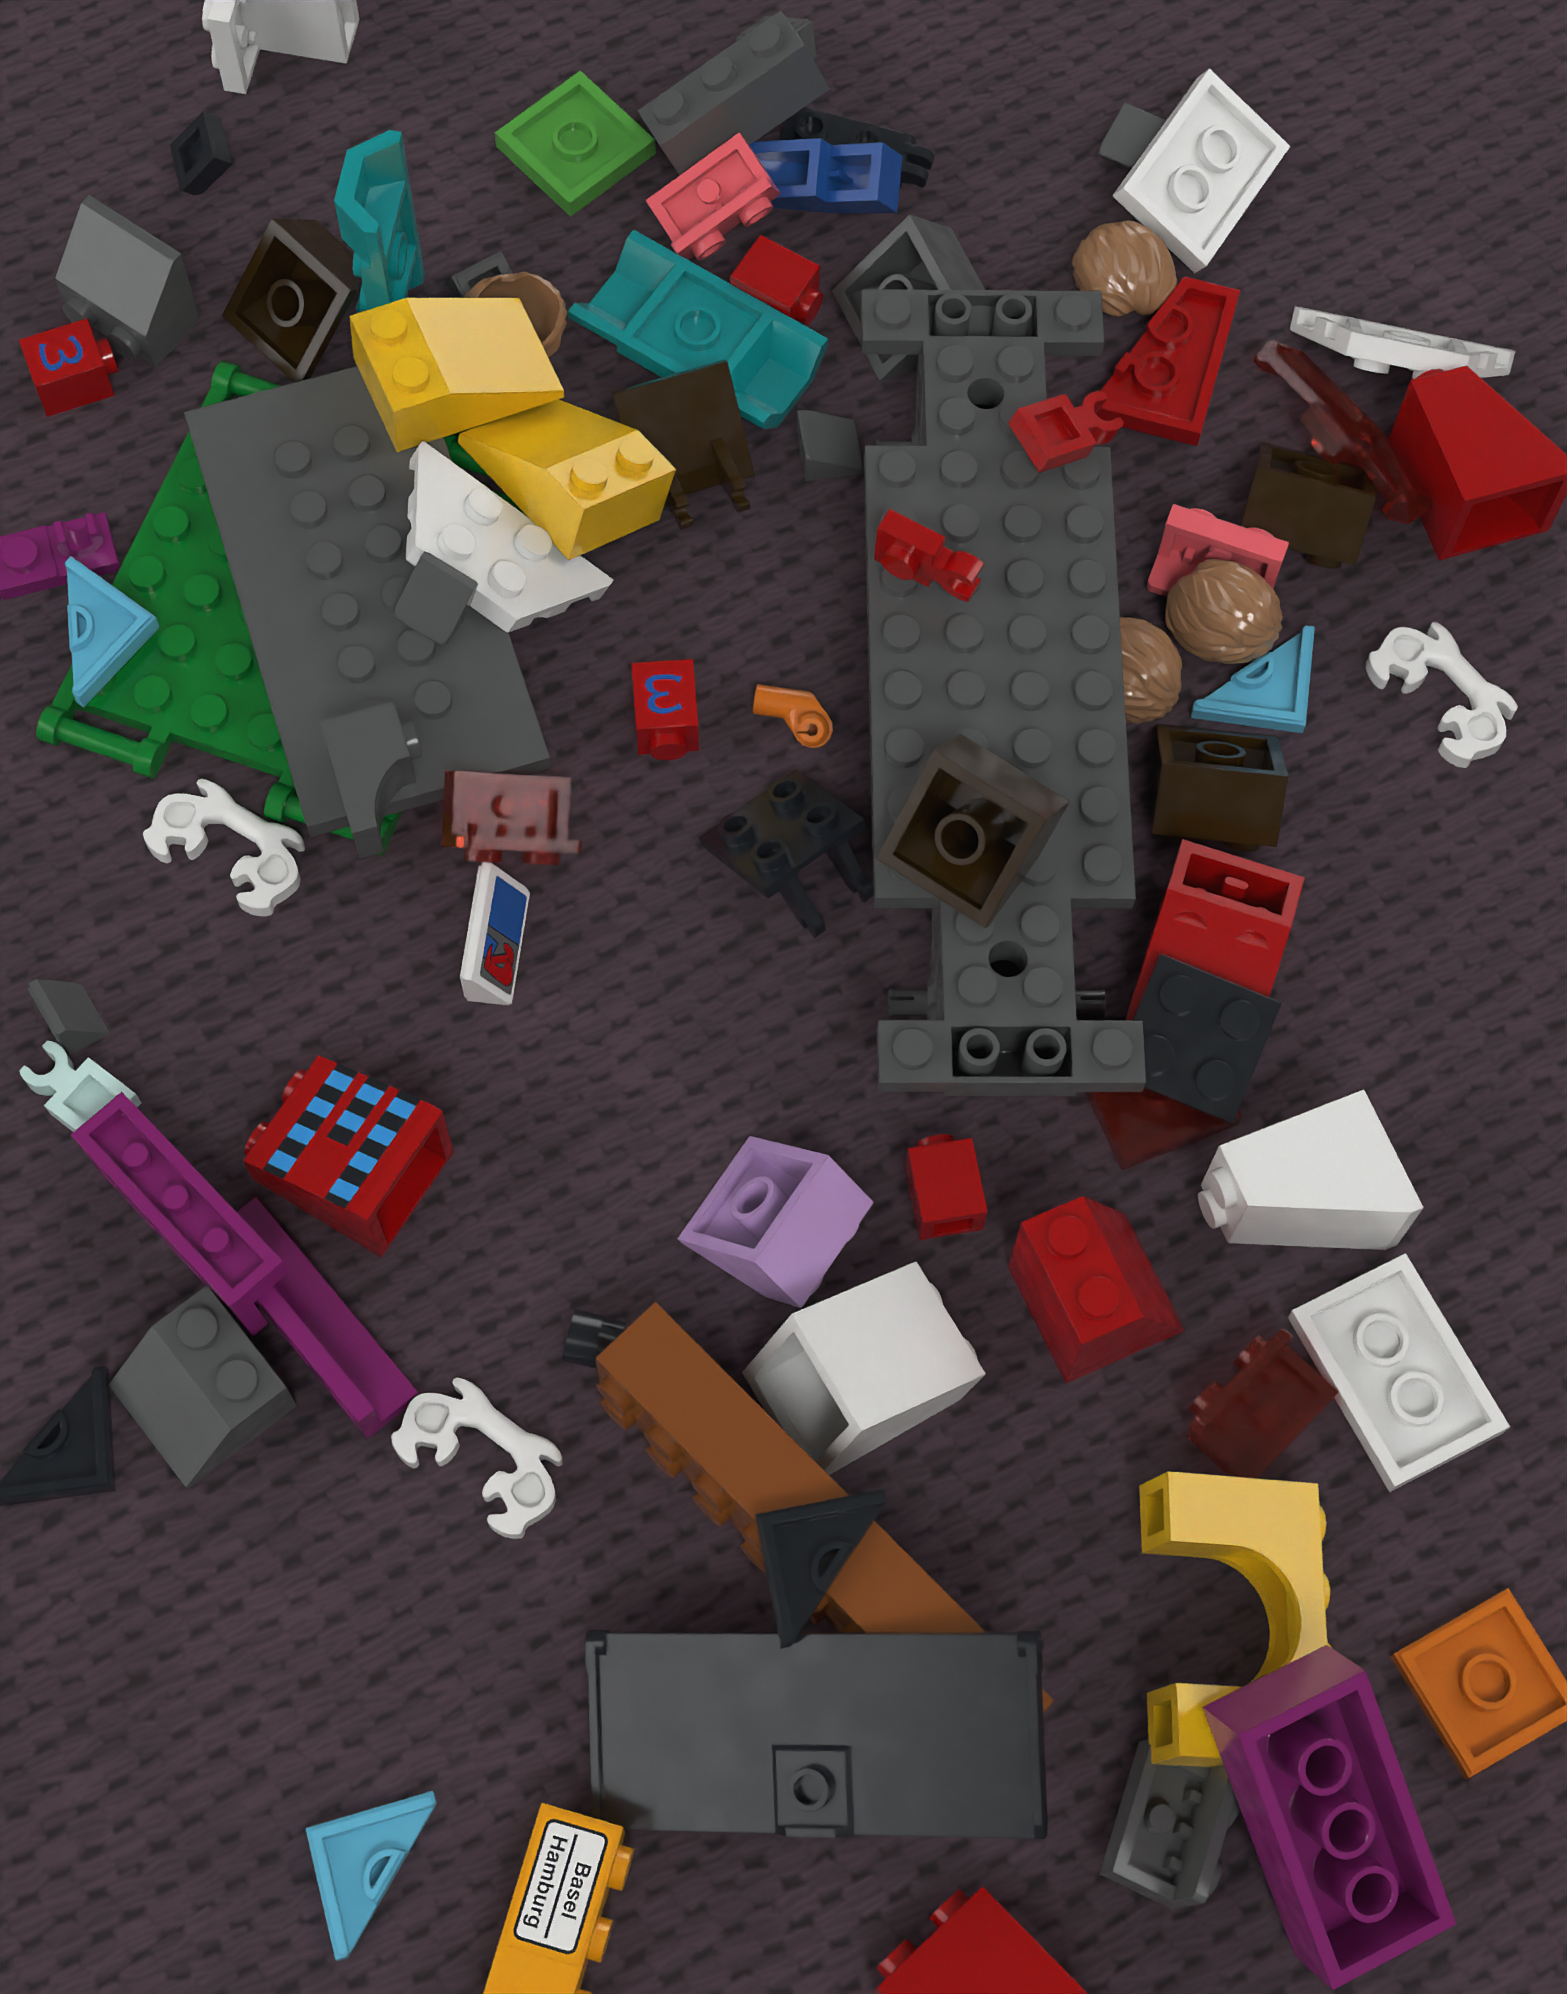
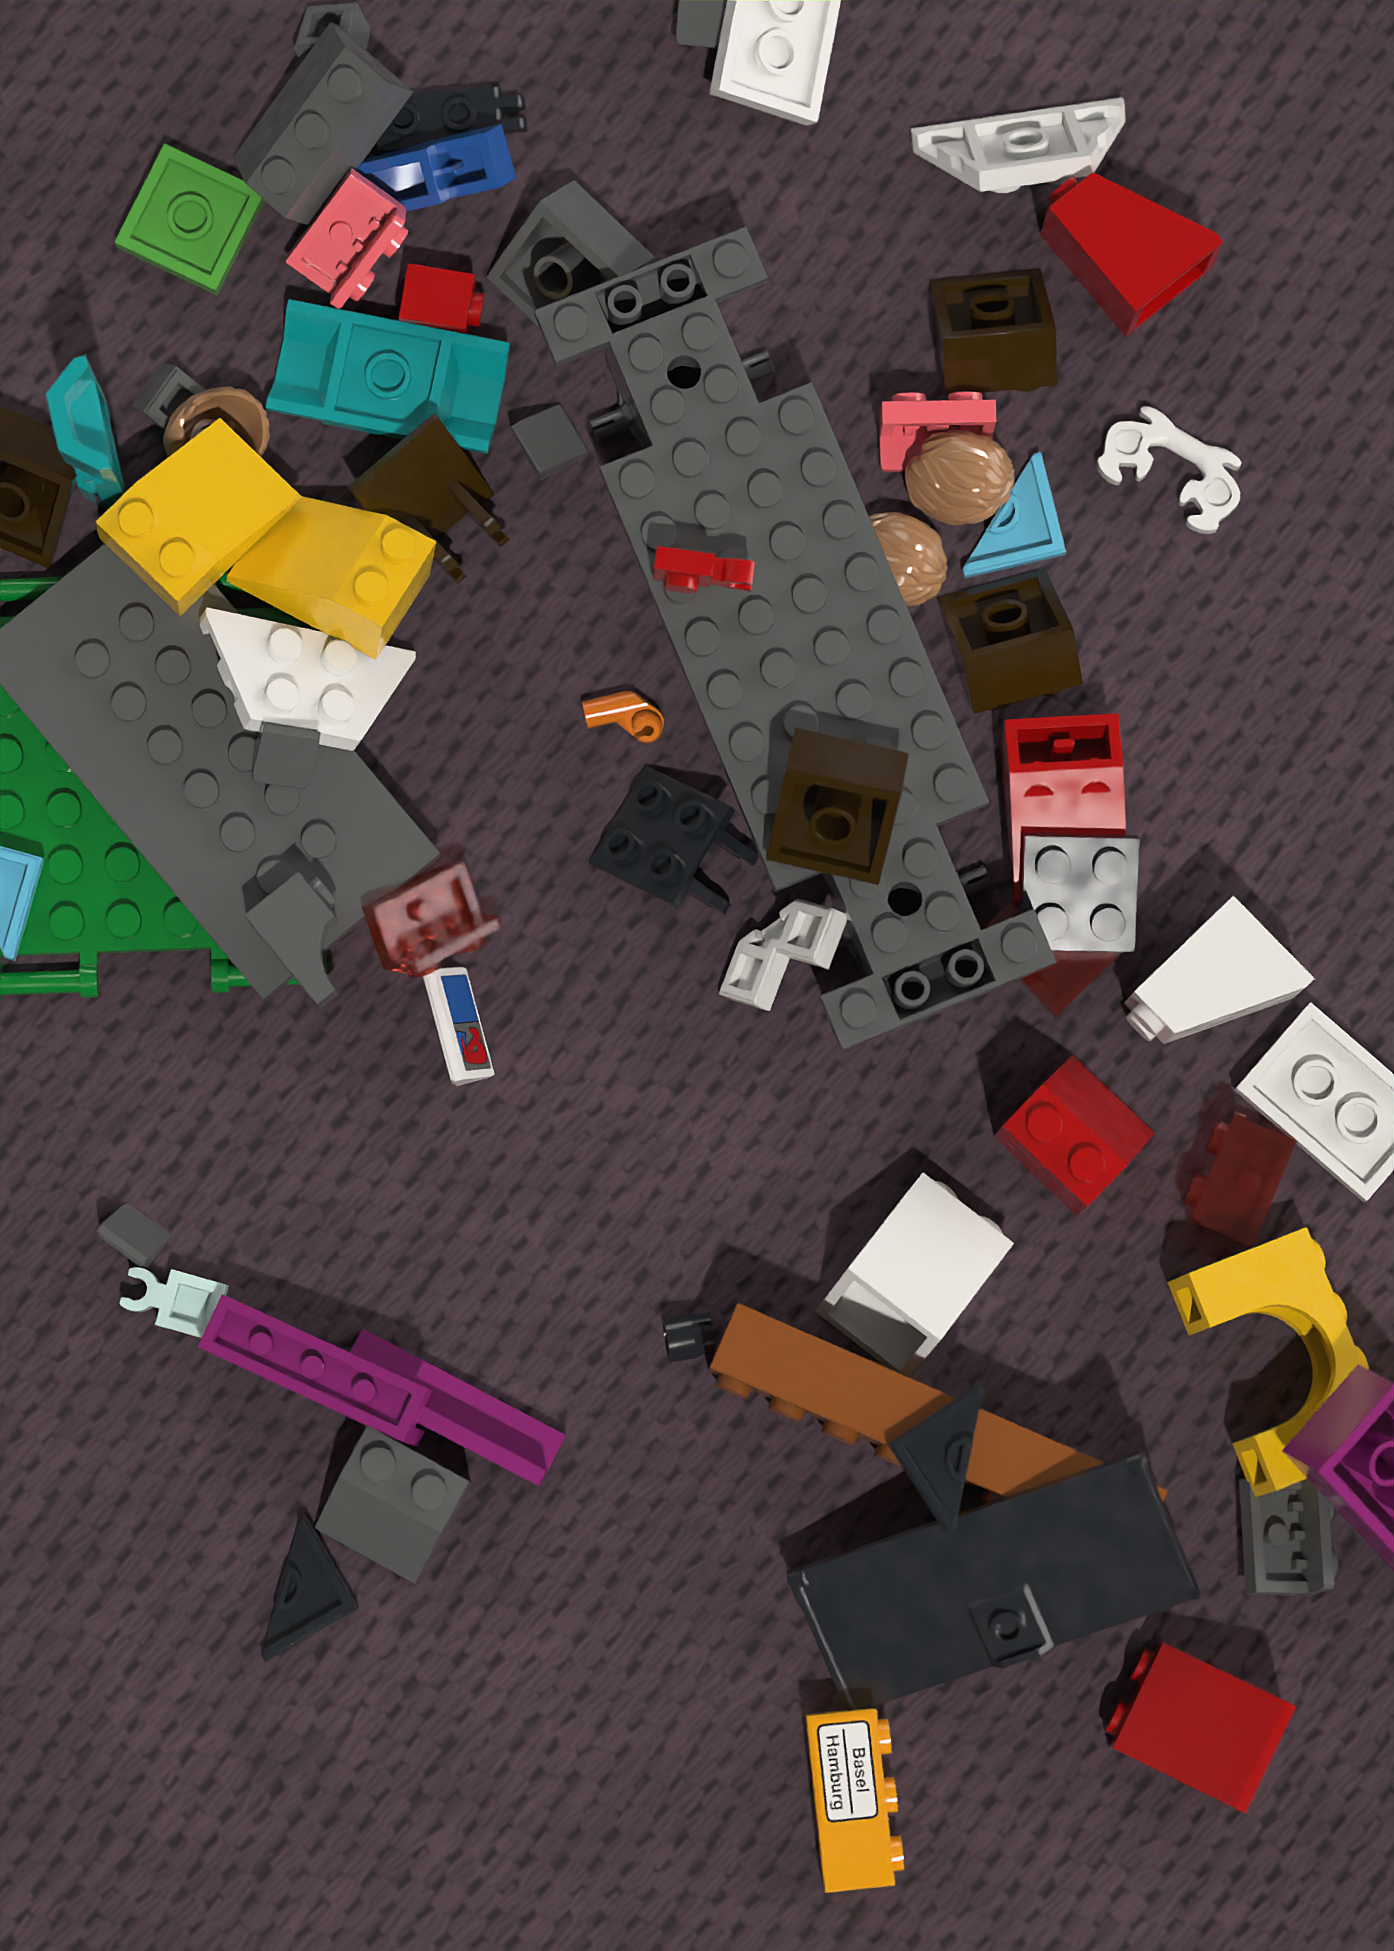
camera: 25 degrees left, 15 degrees up
(182, 821) = (143, 1026): white helmet -> none
(350, 1152) = (421, 1263): red slope -> none
(359, 1860) = (681, 1810): medium azure tile -> none
(432, 1423) = (685, 1479): white helmet -> none
(665, 708) = (514, 760): red brick -> none
(777, 1219) = (793, 1177): lavender slope -> none
(831, 990) = (760, 959): none -> white tile
(945, 1187) = (919, 1094): red brick -> none
(1059, 433) = (769, 396): red plate -> none
(1127, 267) = (745, 157): medium nougat hair -> none
(1174, 366) = (825, 237): red wing -> none
(1346, 432) = (1005, 250): clear red plate -> none

